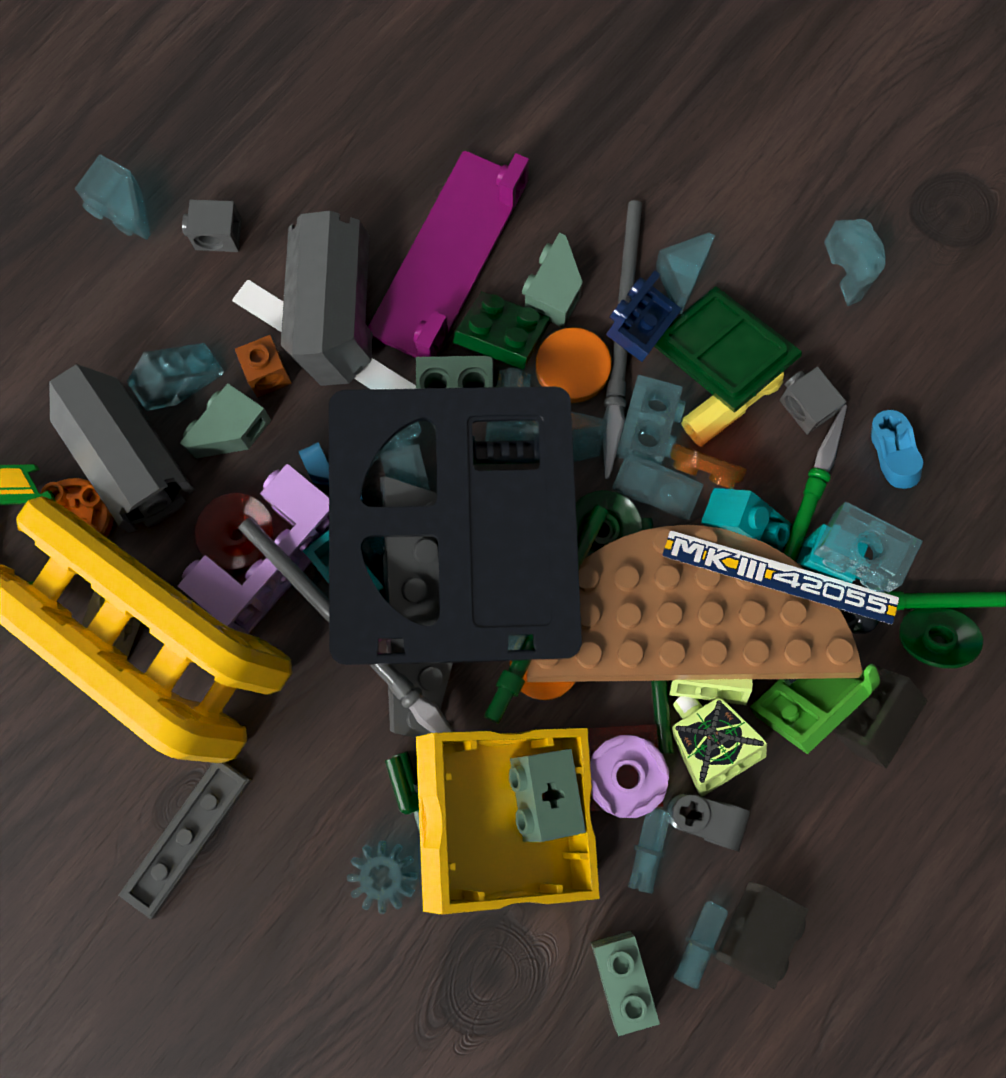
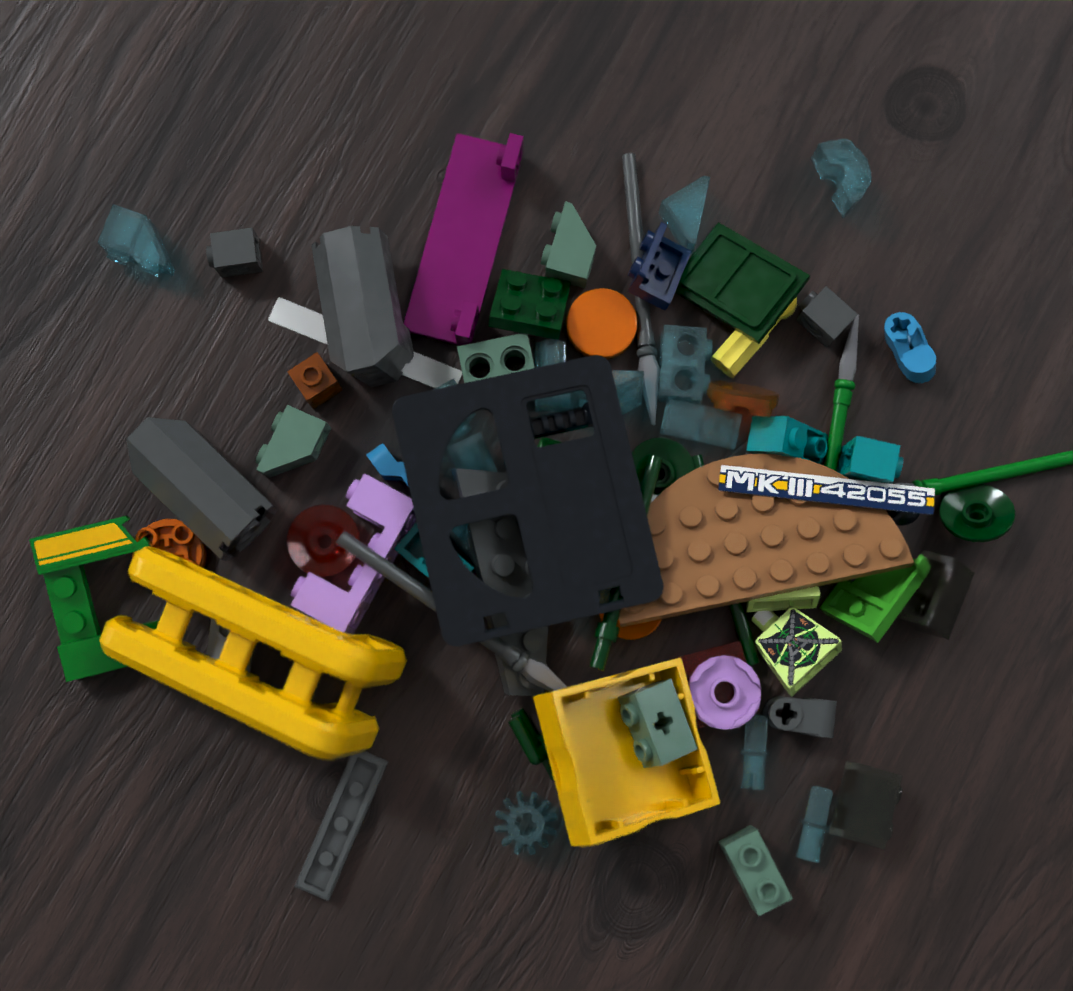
camera: 15 degrees left, 5 degrees up
(173, 374) = (232, 404): clear light blue slope -> none
(891, 547) = (921, 448): clear light blue brick -> none

